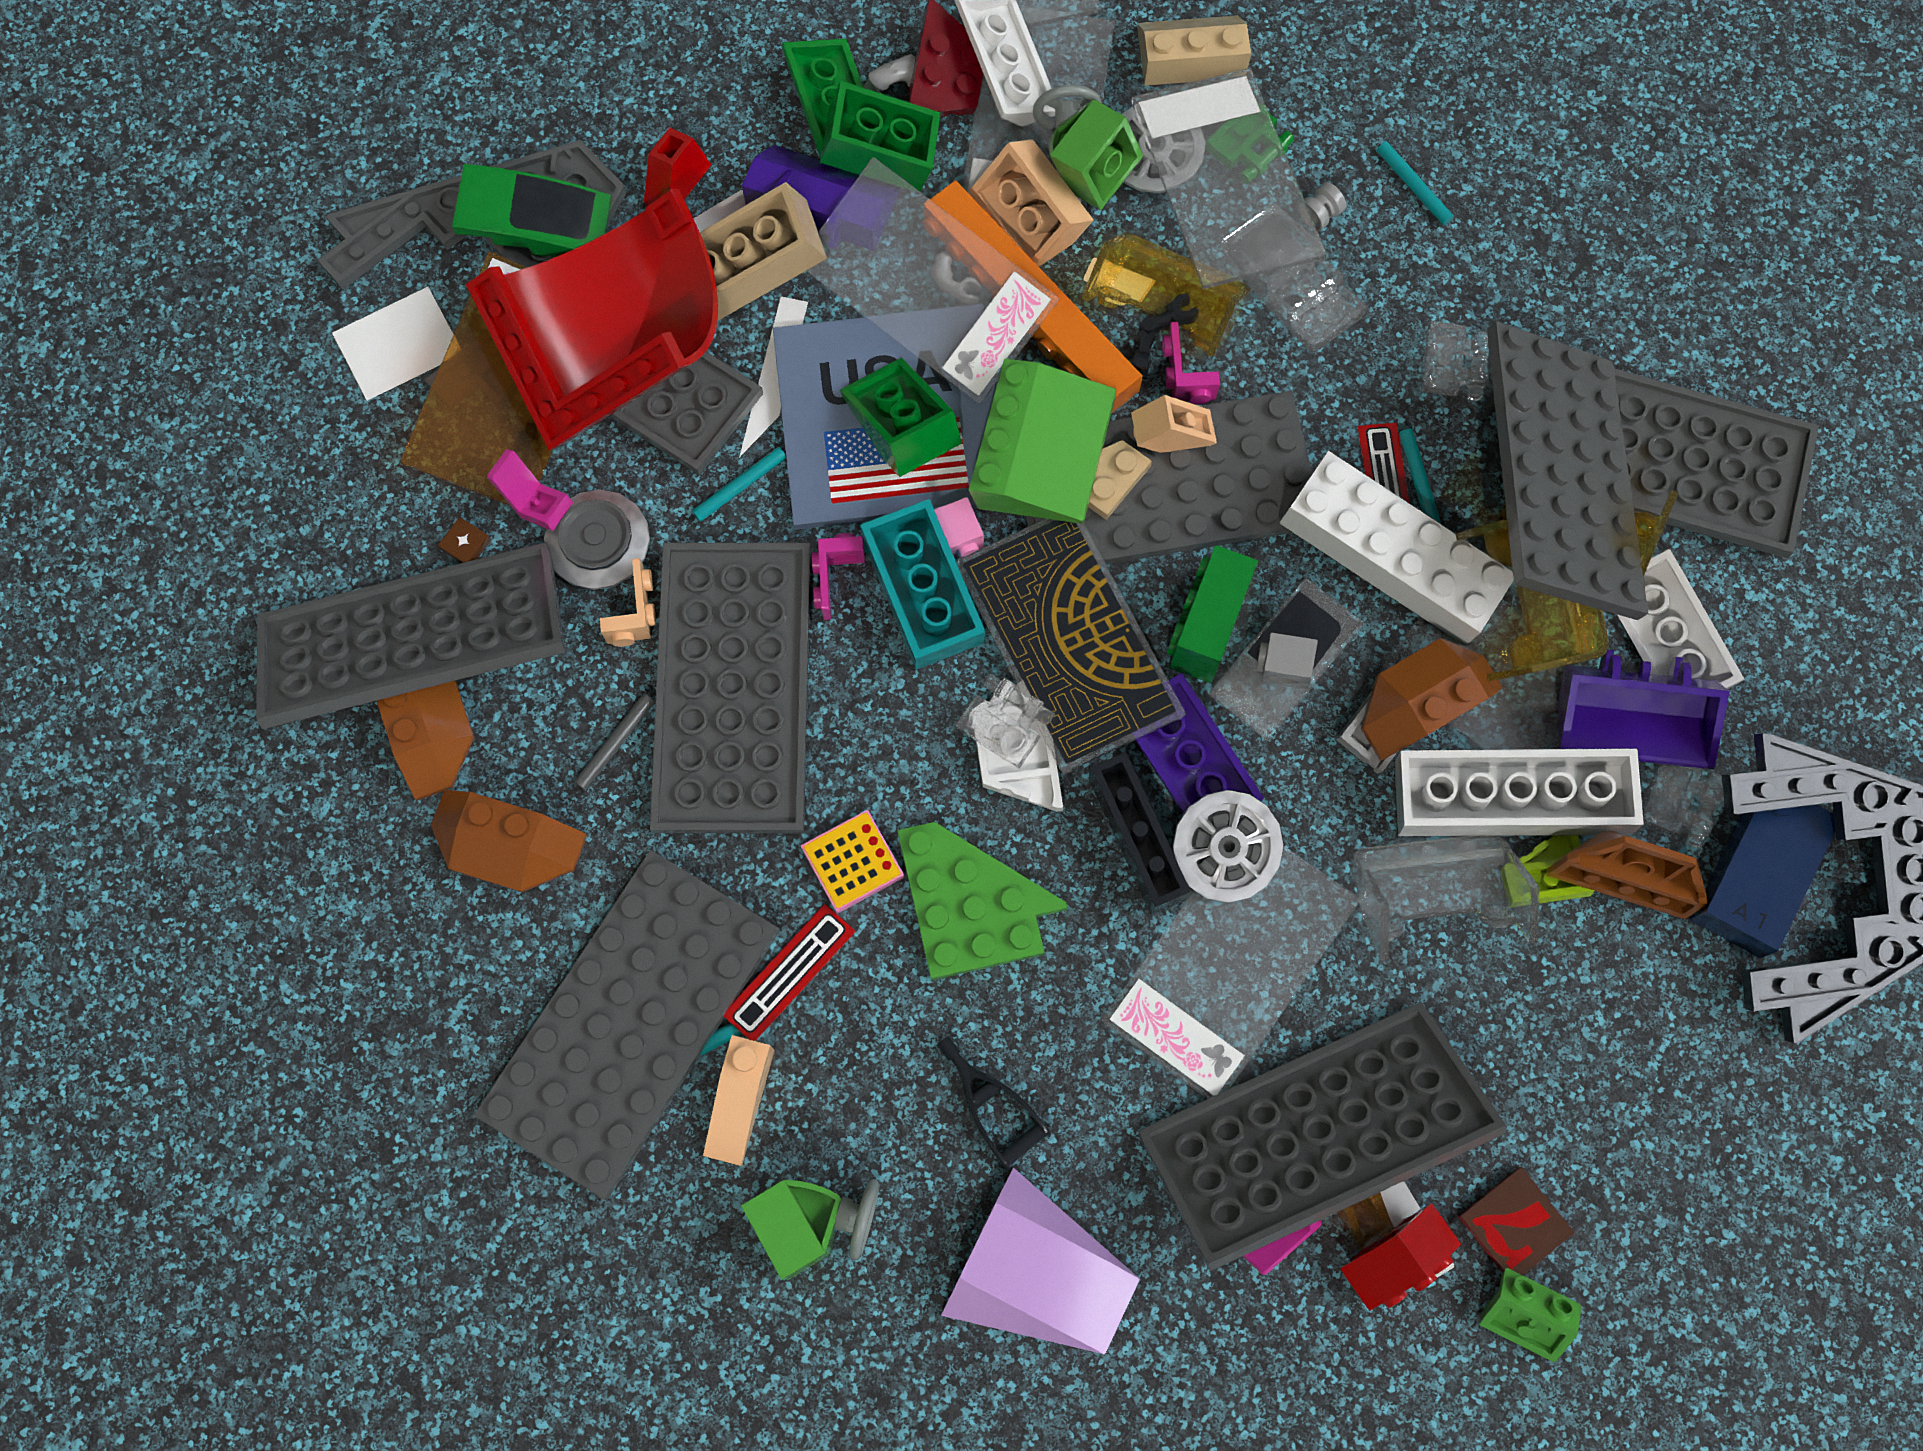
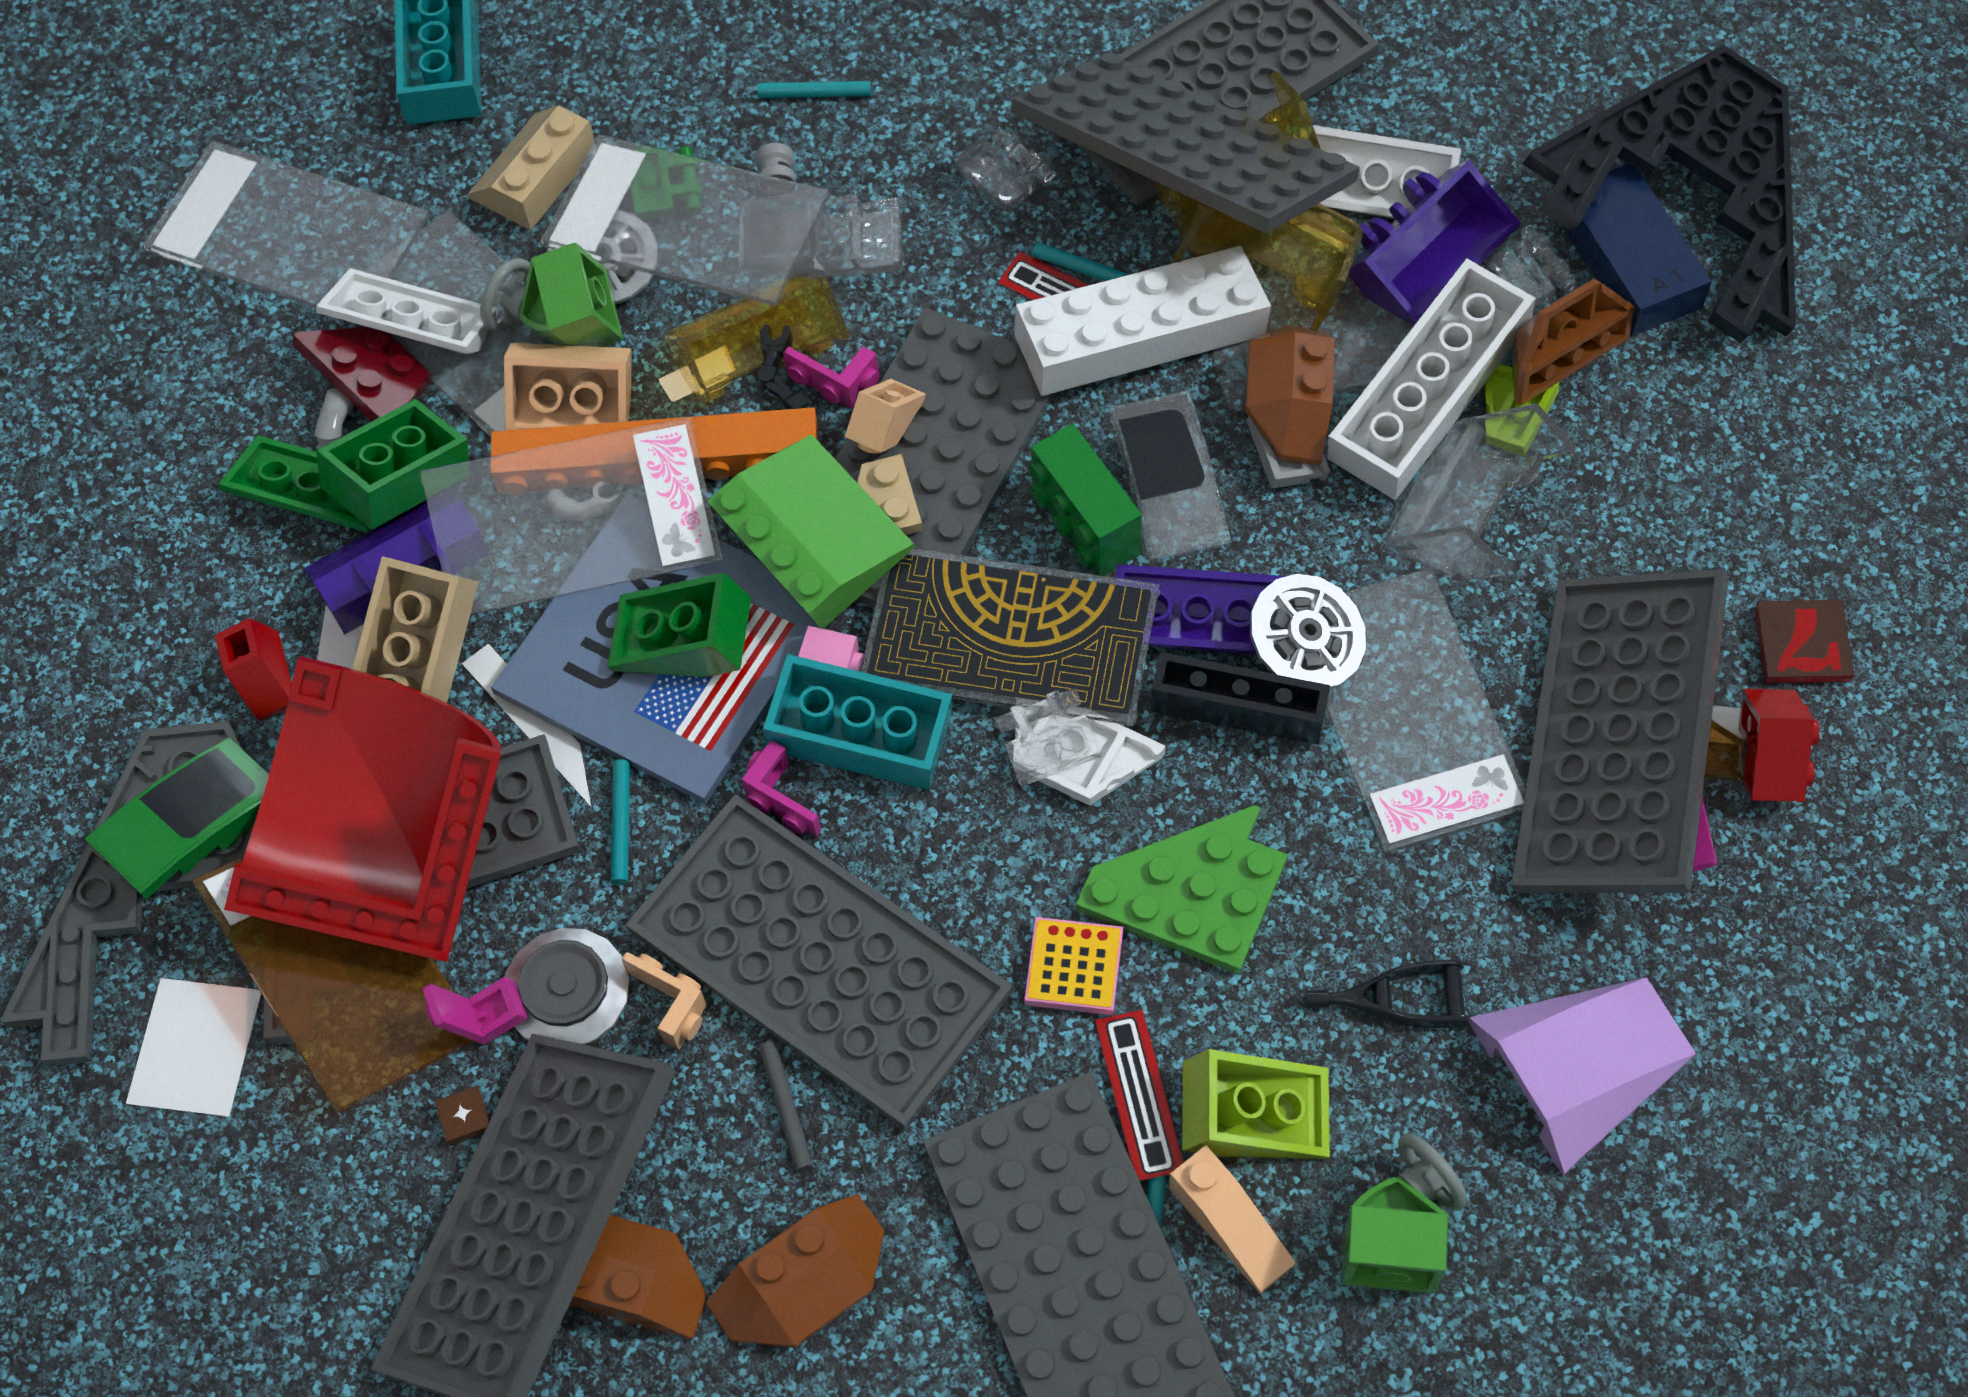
camera: 50 degrees left, 10 degrees down
(832, 1061) = (1255, 1107): none -> lime slope
(1287, 660) = (1183, 462): light grey brick -> none
(1532, 1316) = (1893, 679): bright green bracket -> none

